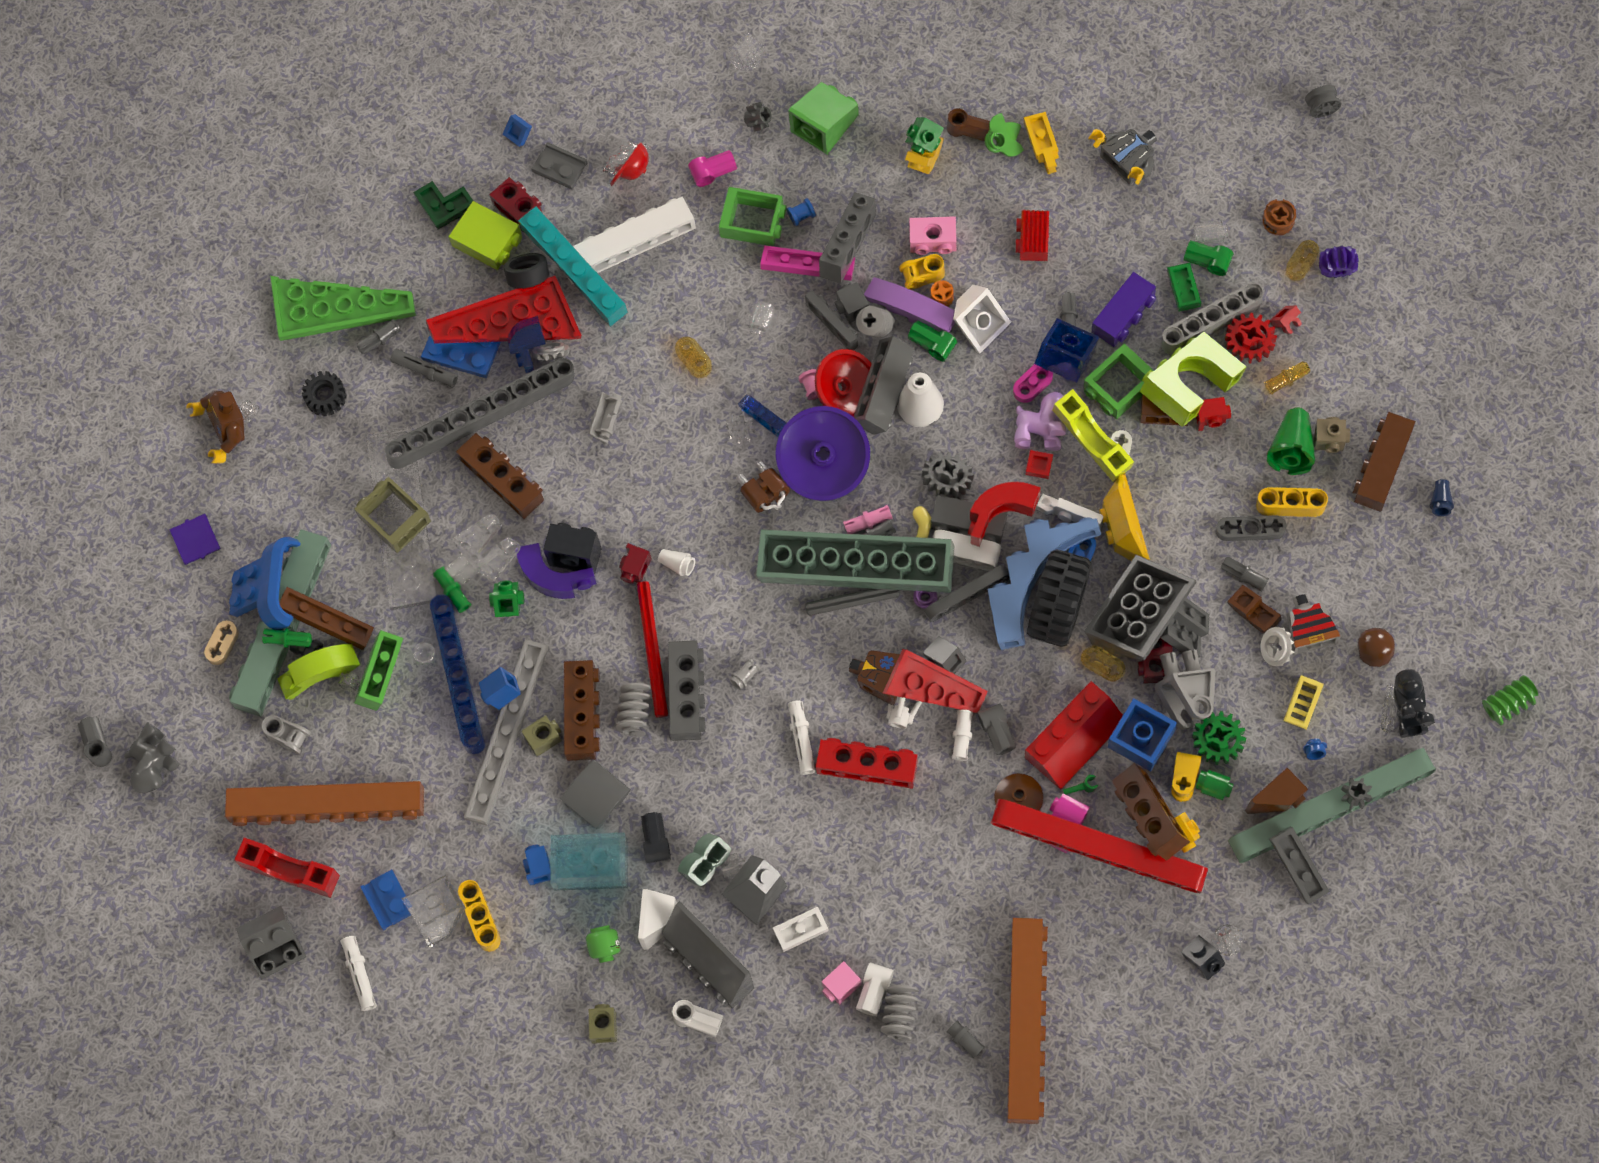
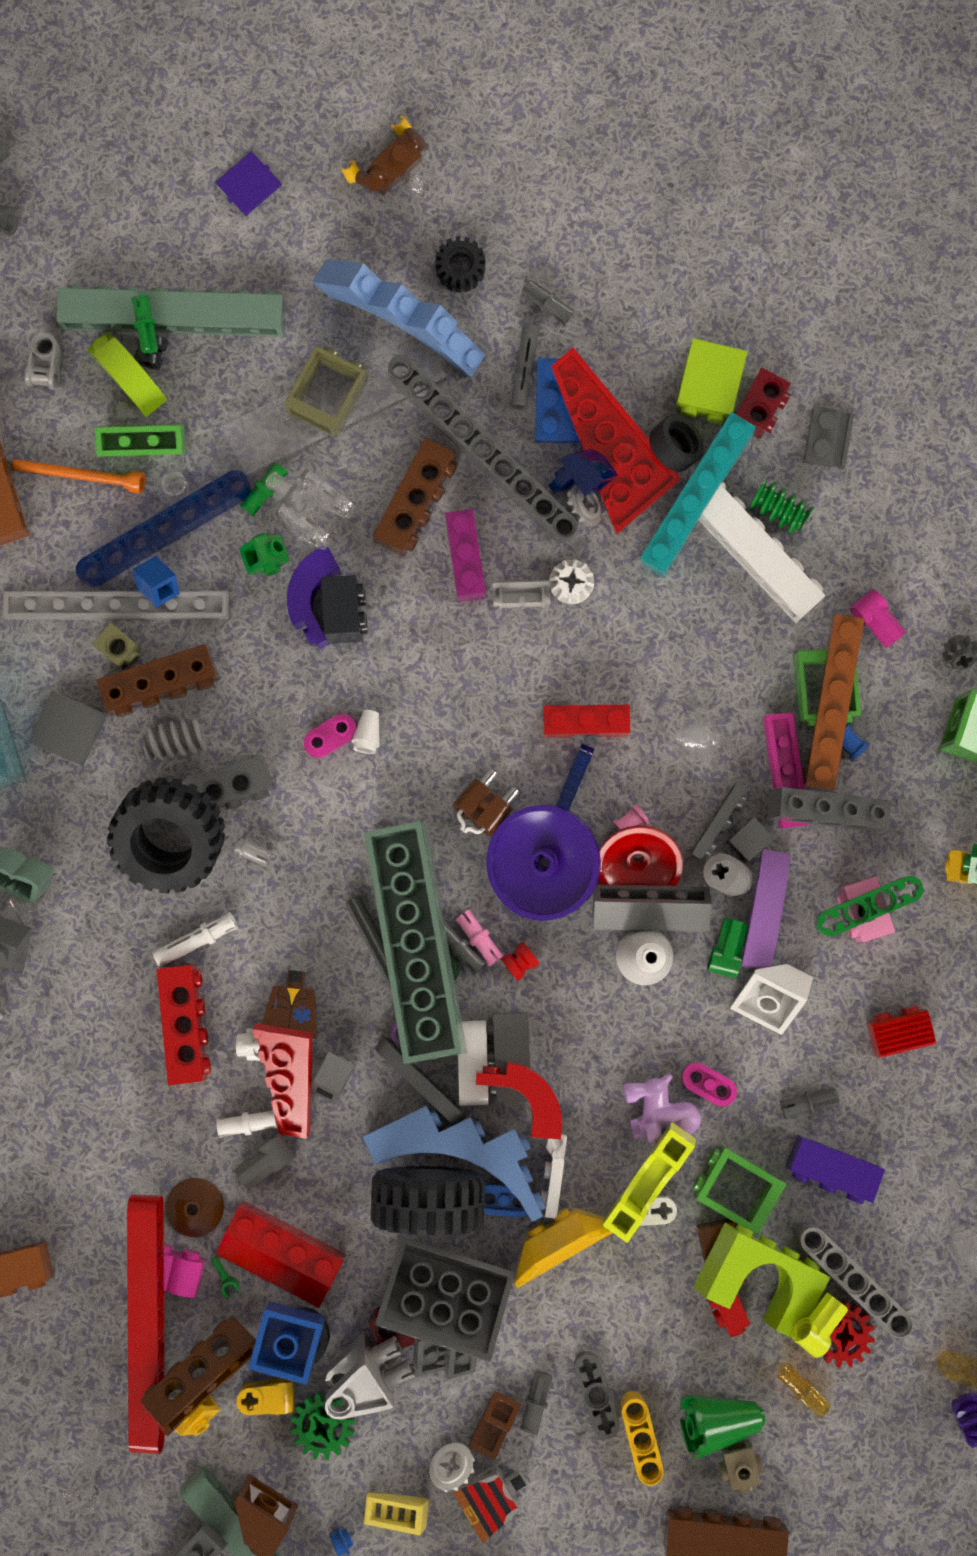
camera: 65 degrees right, 15 degrees up
(216, 640) = (133, 262): tan beam -> none
(259, 586) = (200, 270): blue piece -> none
(326, 618) = (183, 358): reddish brown plate -> none
(327, 307) = (567, 227): bright green wing -> none
(342, 441) = (394, 303): none -> medium blue arch
(408, 690) = (133, 480): none -> orange piece
(442, 209) = (730, 318): dark green plate -> none
(517, 130) = (858, 372): blue plate -> none
(560, 449) = (465, 555): none -> magenta brick
(601, 210) = (781, 507): none -> green piece
(617, 374) = (580, 591): none -> white gear
(628, 163) = (853, 520): hair -> none
(634, 564) = (349, 685): dark red brick -> none
(652, 649) = (255, 737): red axle -> none
(656, 844) = (25, 814): black piece -> none
(670, 591) = (331, 737): none -> dark pink plate
(692, 356) = (628, 672): clear yellow plate -> none
(720, 394) = (575, 720): none -> red arch
(739, 196) = (834, 701): none -> dark orange arch
(739, 721) = (151, 864): none -> black tyre
(894, 491) = (520, 961): none -> red wheel
(921, 273) = (811, 908): yellow piece -> none
(923, 520) = (495, 1004): light yellow arm -> none
(929, 228) = (870, 909): none -> green beam
(941, 289) = (796, 940): orange wheel -> none
(947, 475) = (571, 1018): dark grey gear -> none
(1039, 464) = (605, 1120): red plate -> none
(1066, 350) = (756, 1117): clear blue brick -> none
(1100, 668) = (377, 1264): clear yellow beam -> none
(1184, 287) = (887, 1233): green plate -> none
(1204, 957) = (58, 1472): black bracket -> none
(1214, 784) = (264, 1435): green brick -> none
(1215, 258) = (935, 1263): green piece -> none
(1239, 350) = (815, 1332): none -> neon yellow piece
(1285, 317) = (881, 1369): red tile -> none

